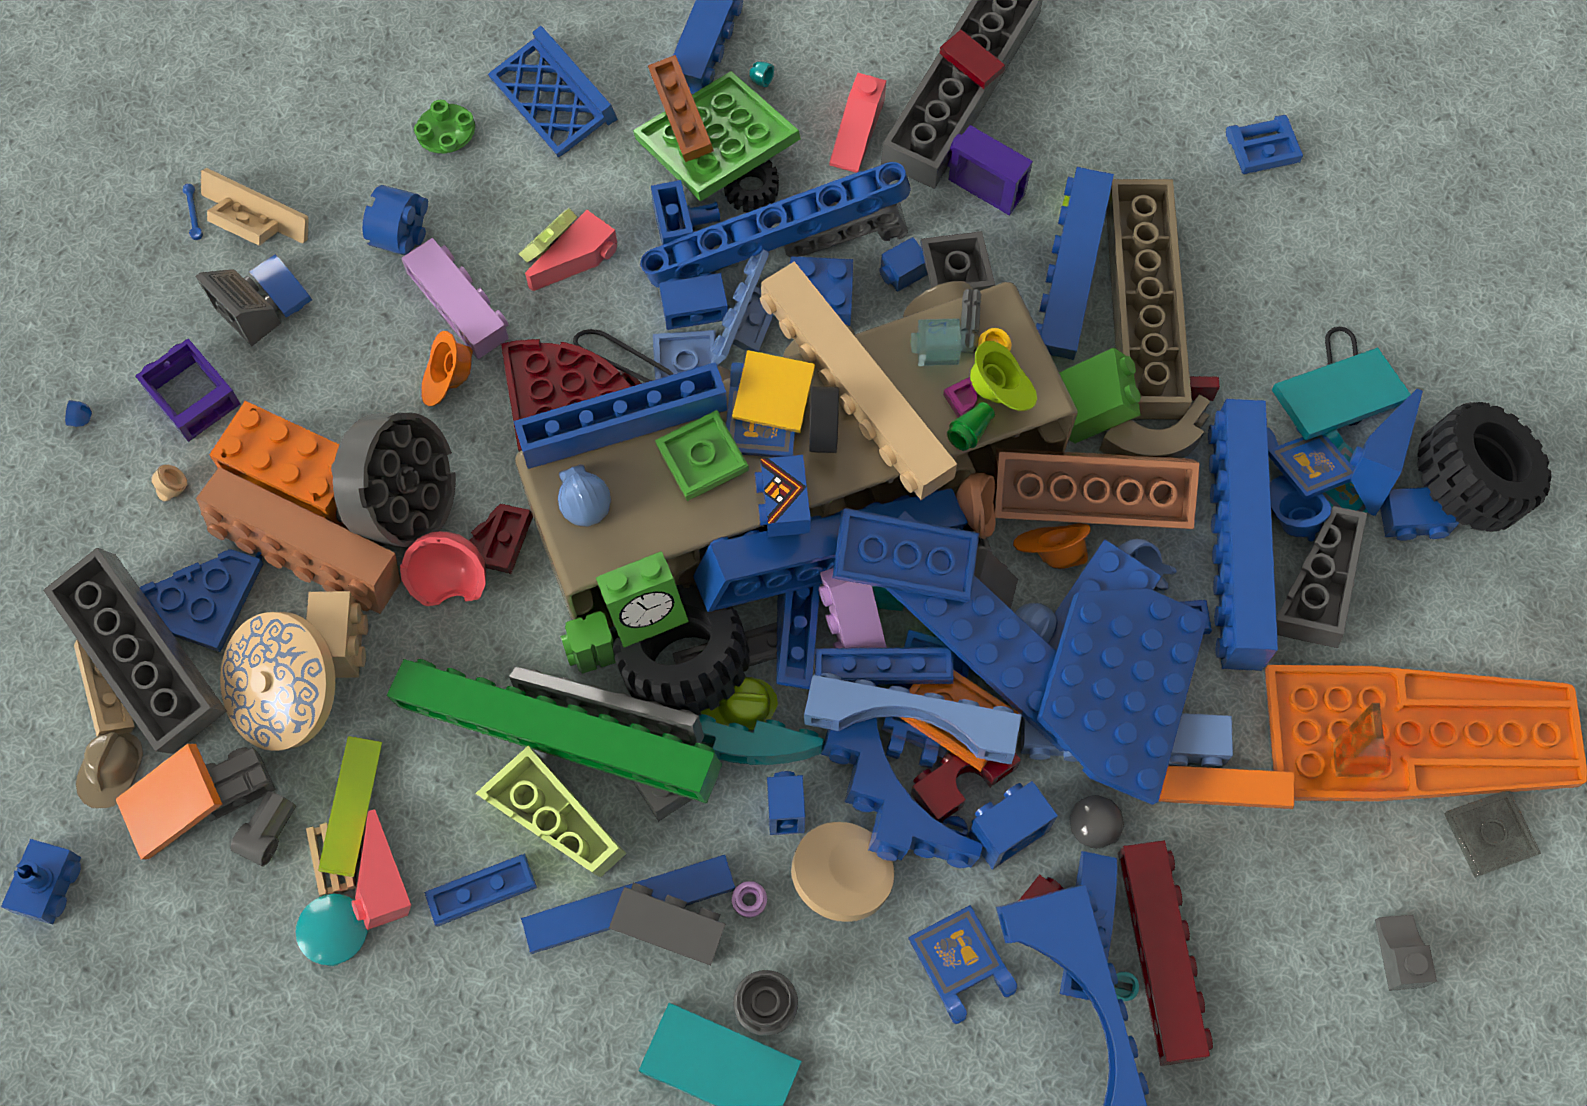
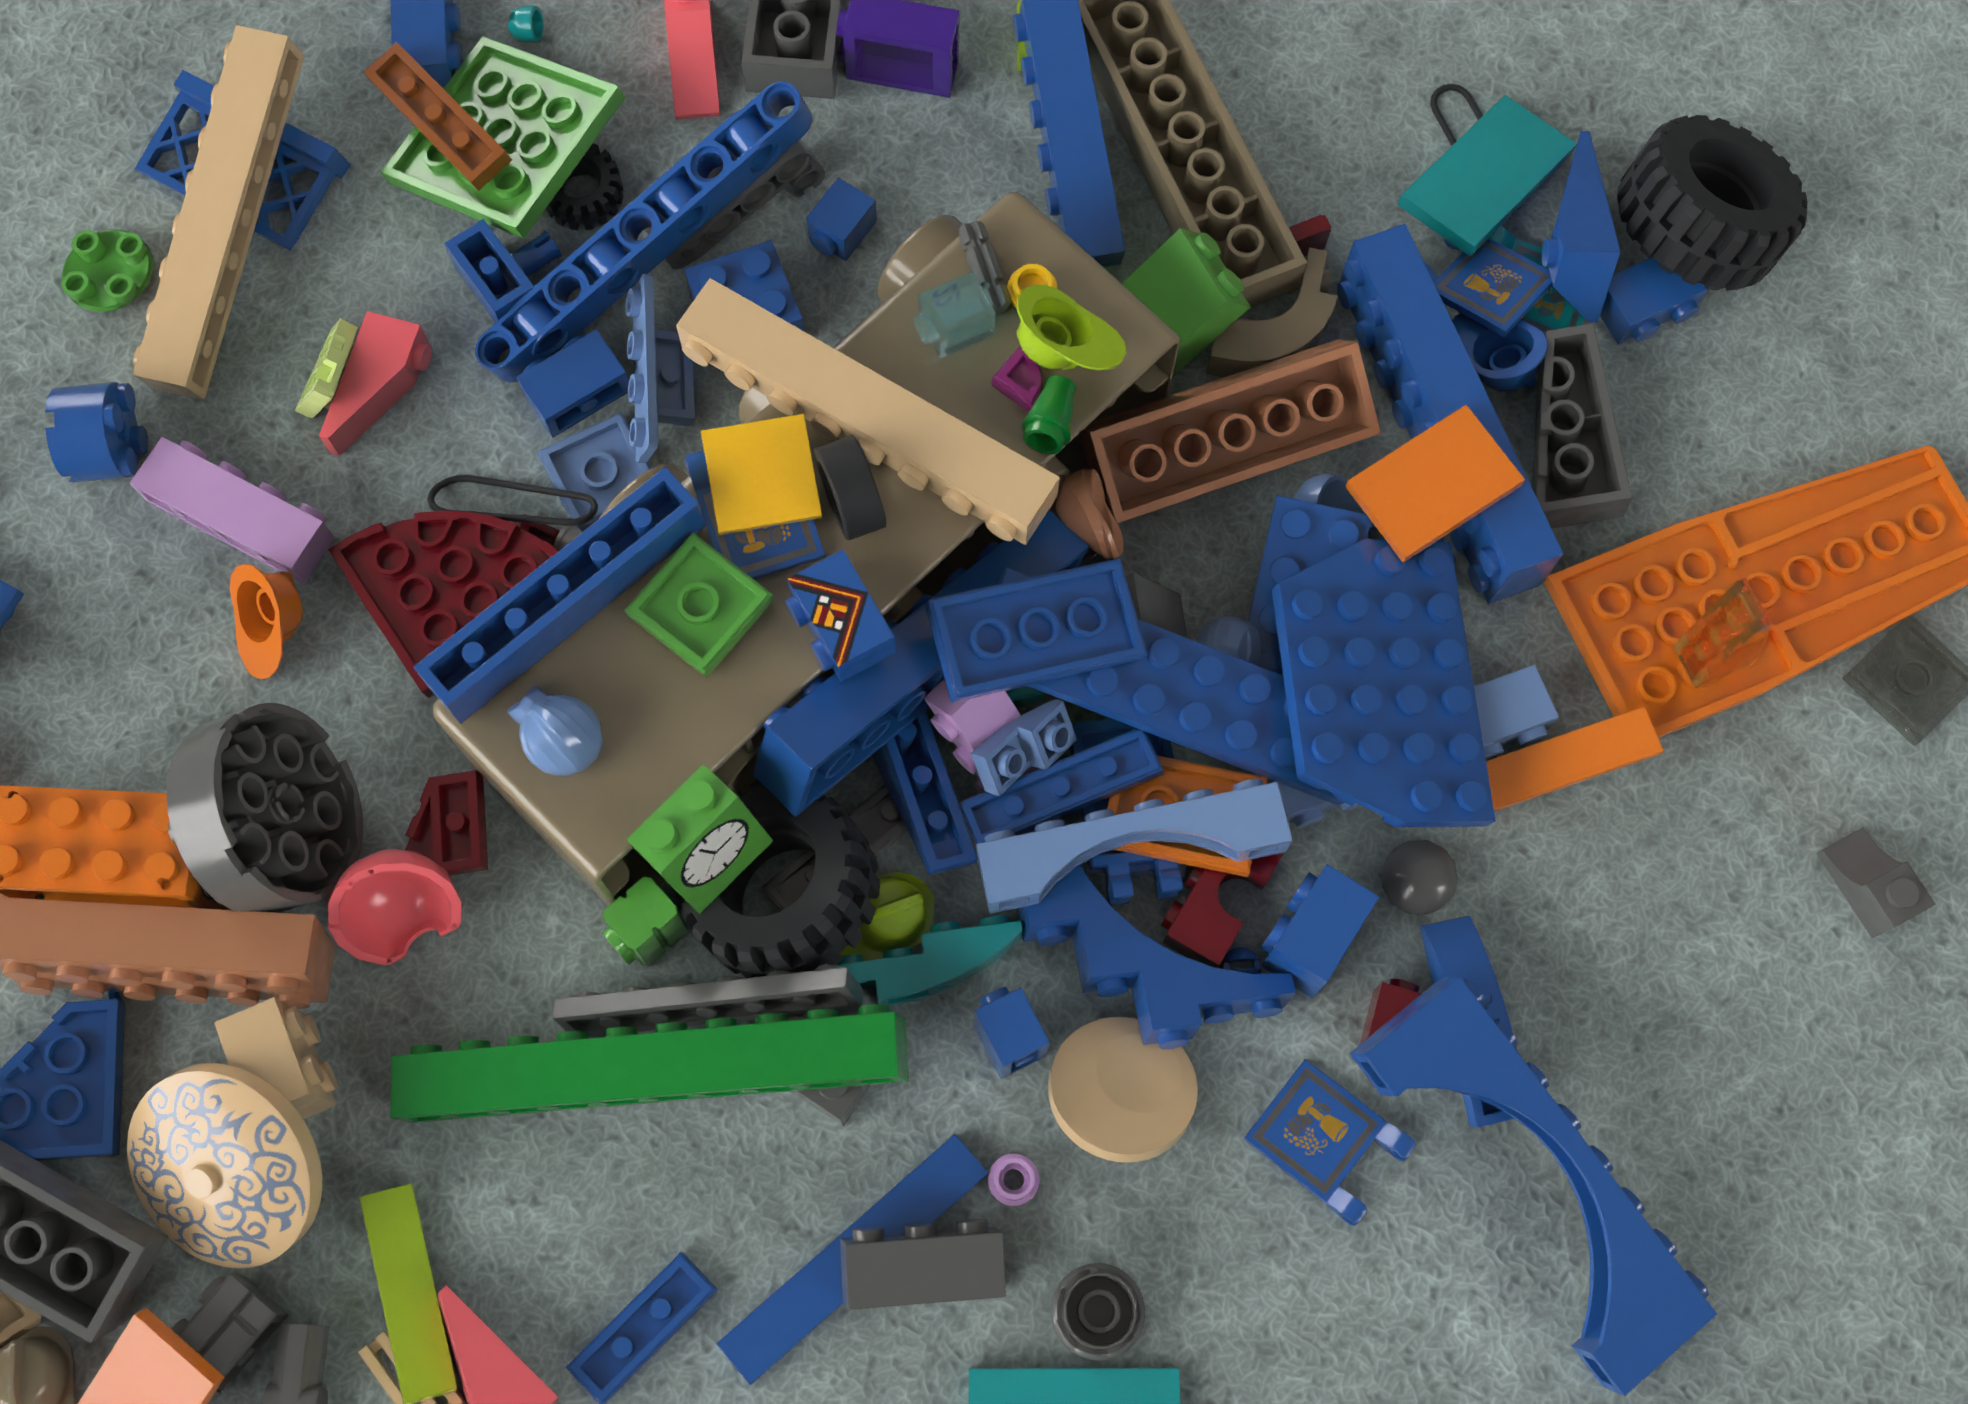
camera: 25 degrees left, 5 degrees up
(524, 118) = (218, 212): none -> tan brick
(546, 806) = (688, 1178): yellowish green wedge -> none
(875, 627) = (1028, 741): none -> medium blue slope
(958, 259) = (915, 188): dark grey slope -> none
(1056, 546) = (1209, 526): orange piece -> none
(1127, 995) = (1559, 1088): teal hinge -> none
(1164, 954) = (1581, 1015): dark red brick -> none
(1210, 571) = (1434, 483): none -> orange tile

